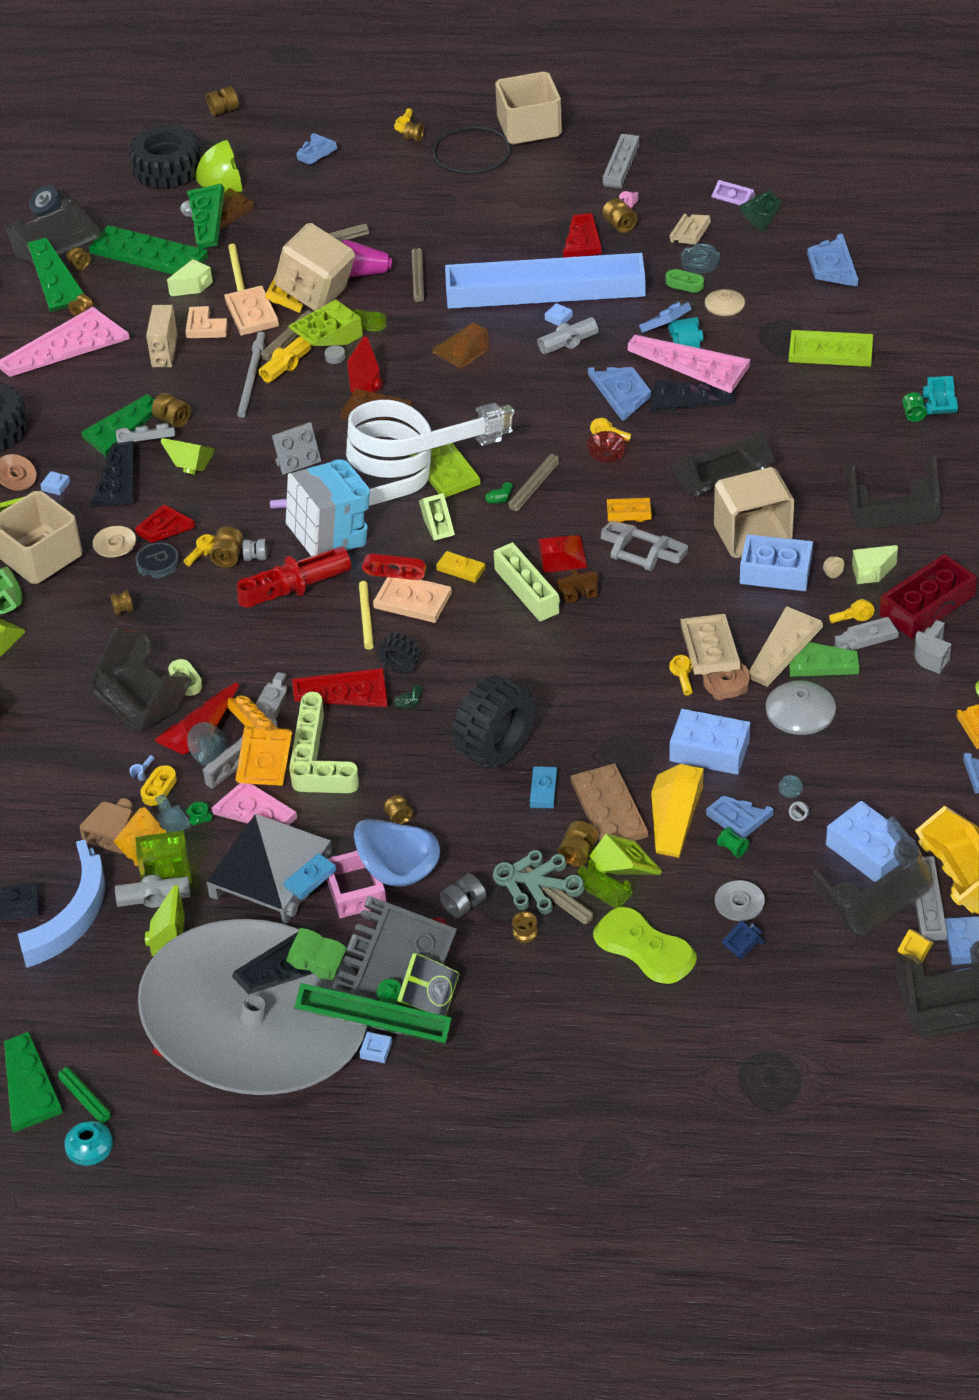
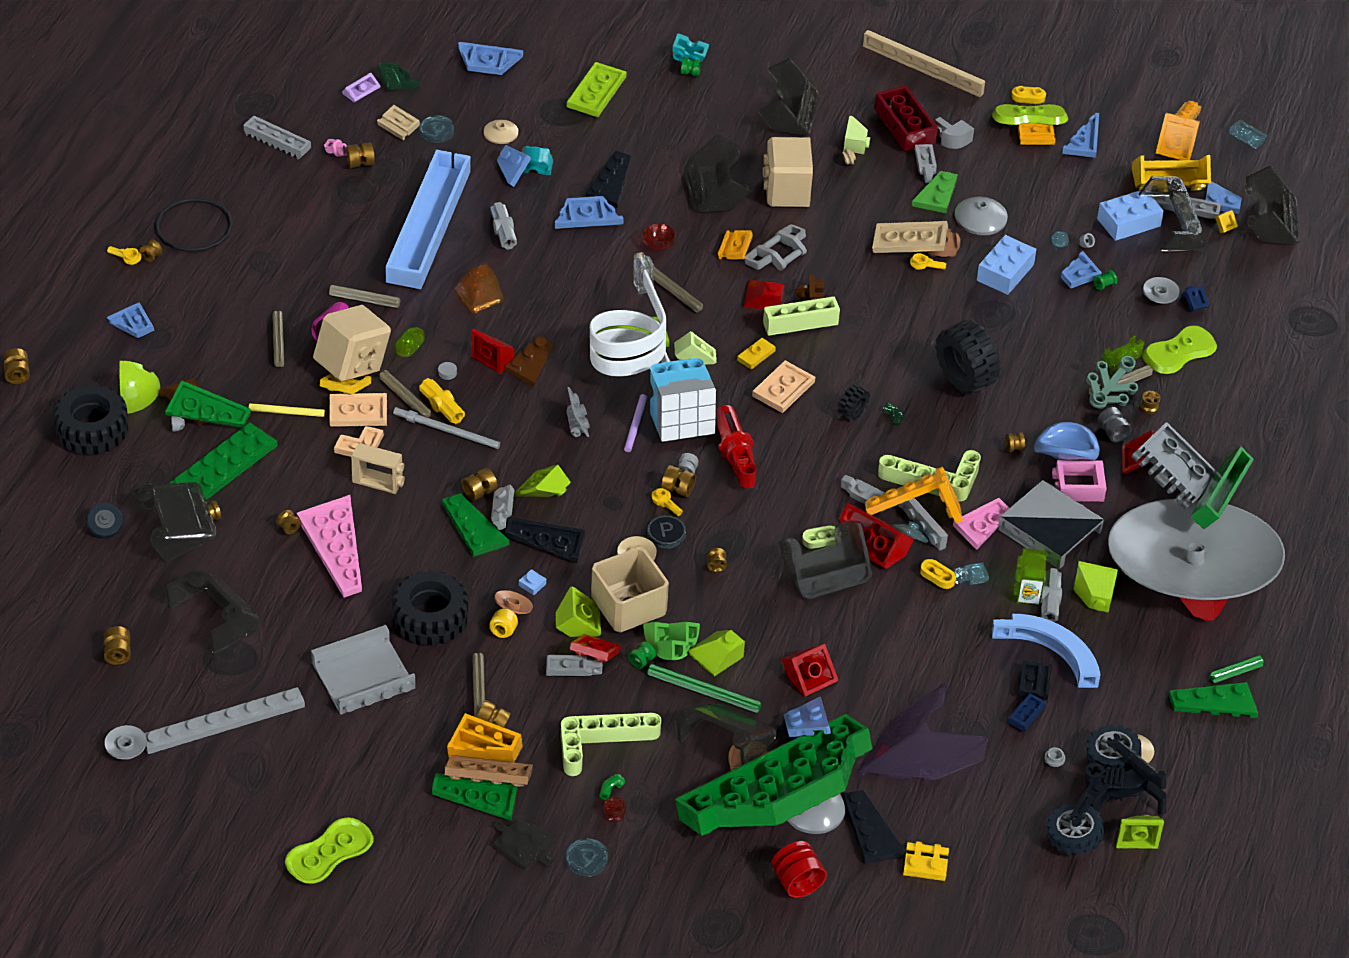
camera: 80 degrees left, 0 degrees up
(53, 275) = (246, 529): green wing -> none
(91, 1150) = (1278, 679): teal piece -> none
(106, 823) = (974, 608): medium nougat torso -> none
(140, 769) = (915, 584): light blue hand -> none
(140, 825) = (1000, 592): light orange plate -> none
(163, 524) = (625, 518): red wing -> none
(190, 279) = (289, 439): yellowish green slope -> none
(199, 813) = (974, 556): green plate -> none
(269, 968) = (1158, 520): black wing -> none
(309, 876) = (1079, 495): dark azure plate -> none
(316, 954) = (1165, 502): bright green brick -> none
(329, 325) = (417, 360): lime slope -> none
(348, 688) = (871, 446): red wing -> none
(366, 617) = (788, 419): light yellow bar -> none
(375, 1047) = (1240, 500): light blue plate -> none
(379, 560) = (756, 382): red beam -> none
(389, 991) = (1202, 476): green tile -> none
(428, 985) = (1203, 456): slope -> none
(499, 495) = (682, 310): green arm -> none
(528, 108) = (185, 163): tan plate -> none
(543, 787) = (1016, 363): dark azure plate -> none
(558, 314) = (467, 226): light blue plate -> none
(578, 843) = (1081, 353): pearl gold wheel -> none
(582, 237) = (371, 185): red wing -> none
(603, 424) = (631, 234): yellow plate -> none
(608, 803) = (1044, 334): medium nougat plate -> none
(622, 857) = (1105, 337): lime slope -> none
(674, 805) = (1056, 296): yellow wedge -> none
(684, 280) = (466, 143): bright green plate -> none
(707, 366) = (581, 160): bright pink wing -> none
(776, 562) = (837, 181): light blue brick -> none
(786, 640) = (920, 200): tan wing -> none
(860, 610) = (899, 156): yellow plate -> none

